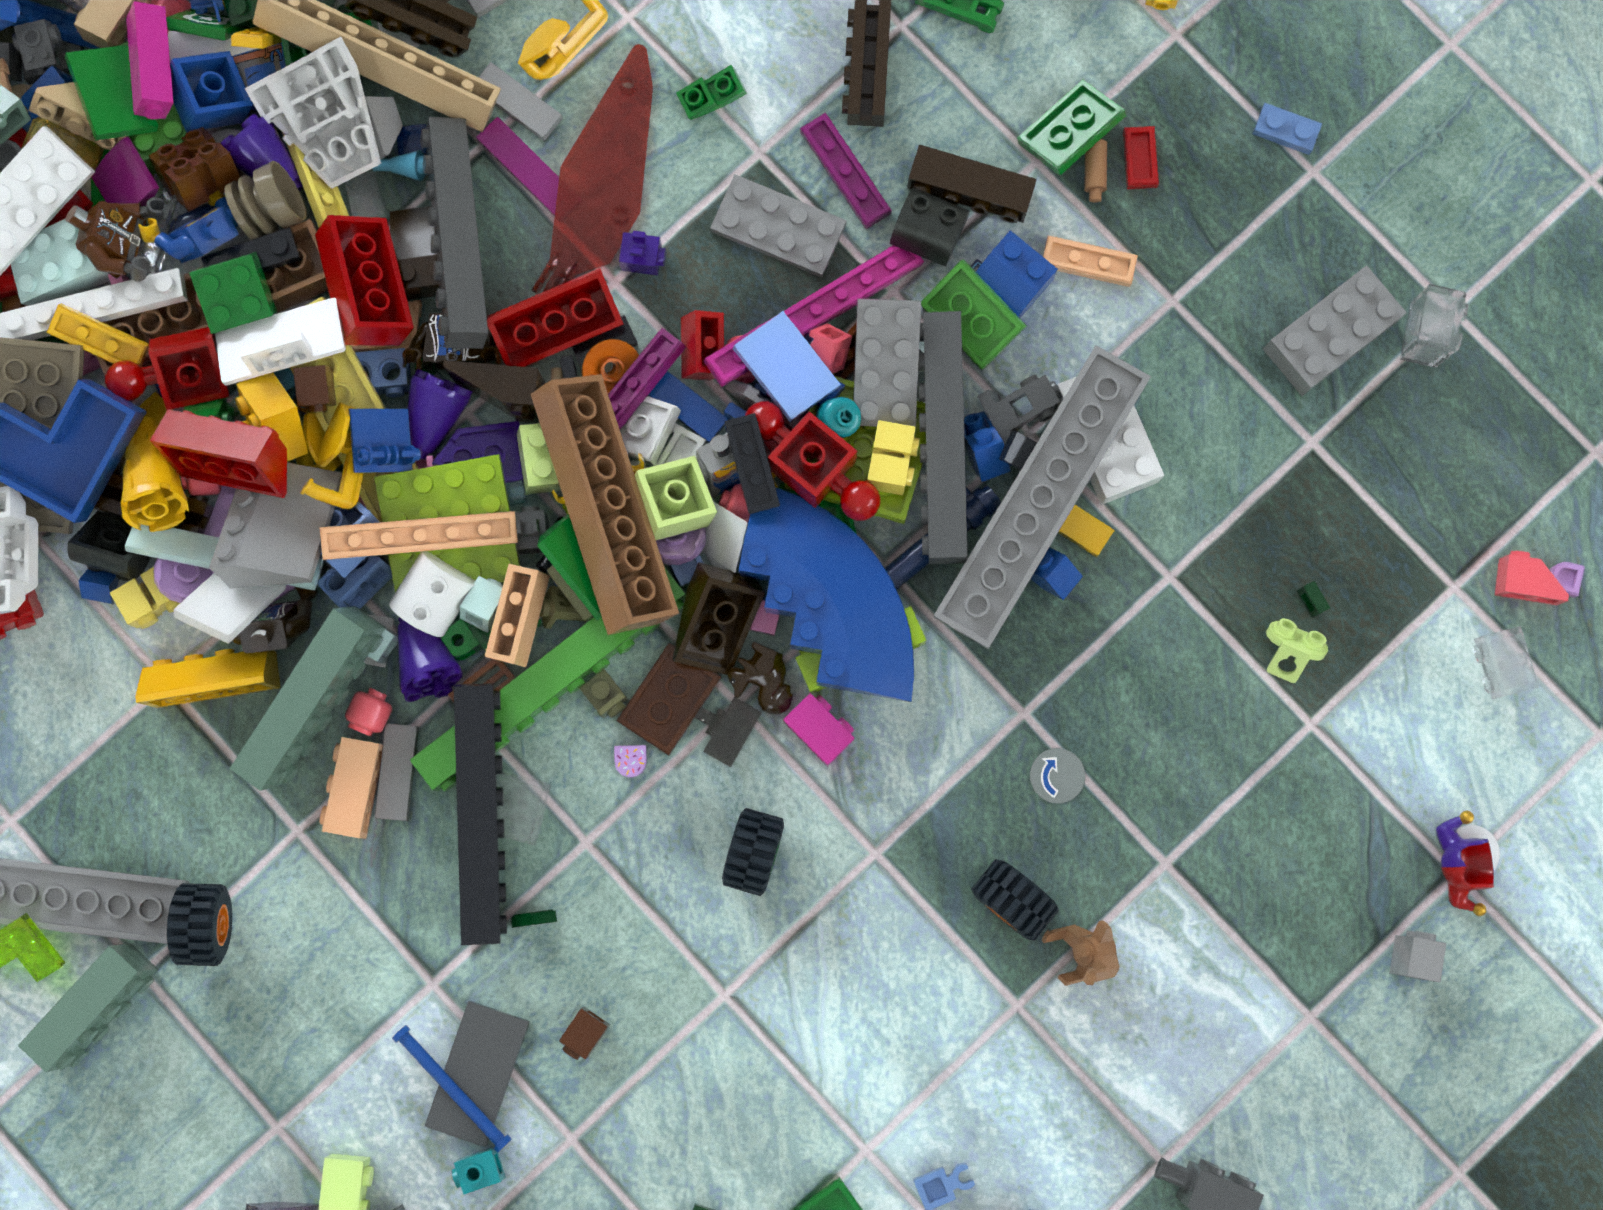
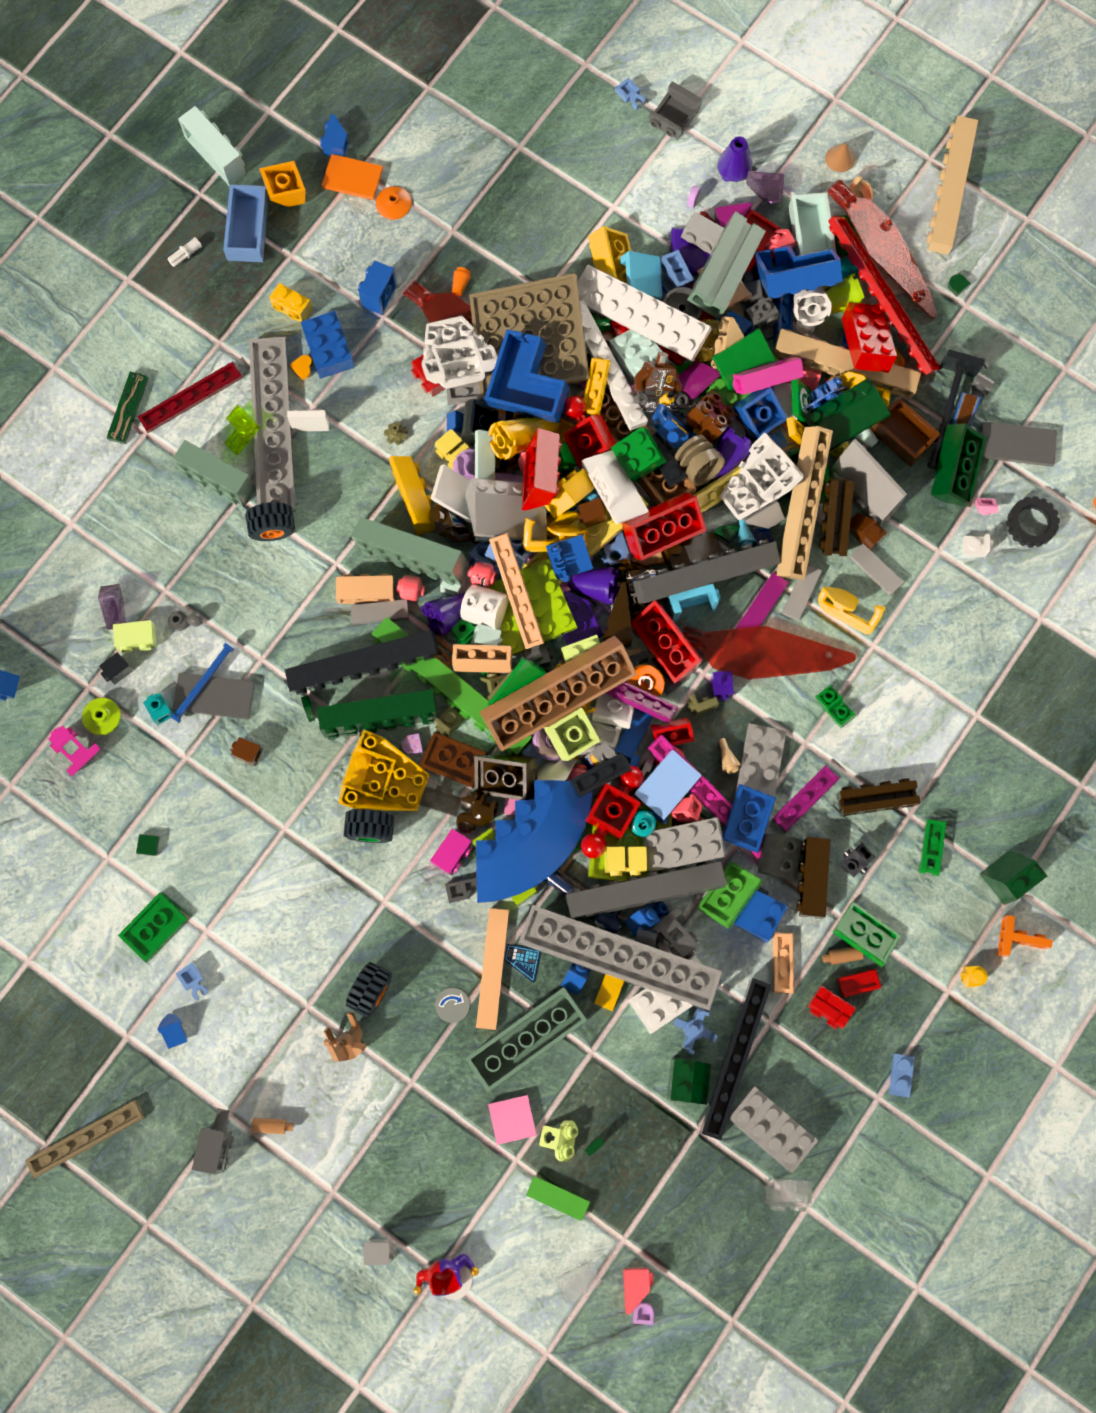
camera: 75 degrees right, 5 degrees down
(35, 828) = (308, 420): none -> white tile
(53, 561) = (462, 393): none -> light grey plate
(93, 688) = (396, 433): none -> olive plant
(337, 1083) = (194, 619): none -> dark grey plate
(375, 587) = (482, 574): none -> coral head
(392, 193) = (727, 532): none -> dark green tile
(492, 238) = (690, 598): none -> medium azure panel
(570, 803) = (377, 714): none -> dark green brick
(666, 285) = (705, 705): none -> olive bracket
(675, 820) = (381, 777): none -> yellow wedge
(763, 270) = (729, 761): none -> tan cone
(861, 258) = (748, 818): none -> blue tile
(880, 726) = (461, 889): none -> dark grey tile
(958, 113) = (857, 860): none -> black brick
(1009, 652) = (523, 960): none -> dark blue sticker
(1014, 701) = (492, 969): none -> light nougat tile
(1136, 669) = (526, 1039): none -> sand green brick
(1168, 411) = (694, 1029): none -> medium blue piece
(1170, 205) = (831, 1007): none -> red brick
(1194, 1095) = (271, 1126): none -> medium nougat cylinder
(1223, 360) = (735, 1059): none -> black brick
(1244, 440) = (688, 1081): none -> dark green slope
(1250, 716) = (512, 1119): none -> bright pink tile
(1378, 670) = (558, 1198): none -> bright green tile

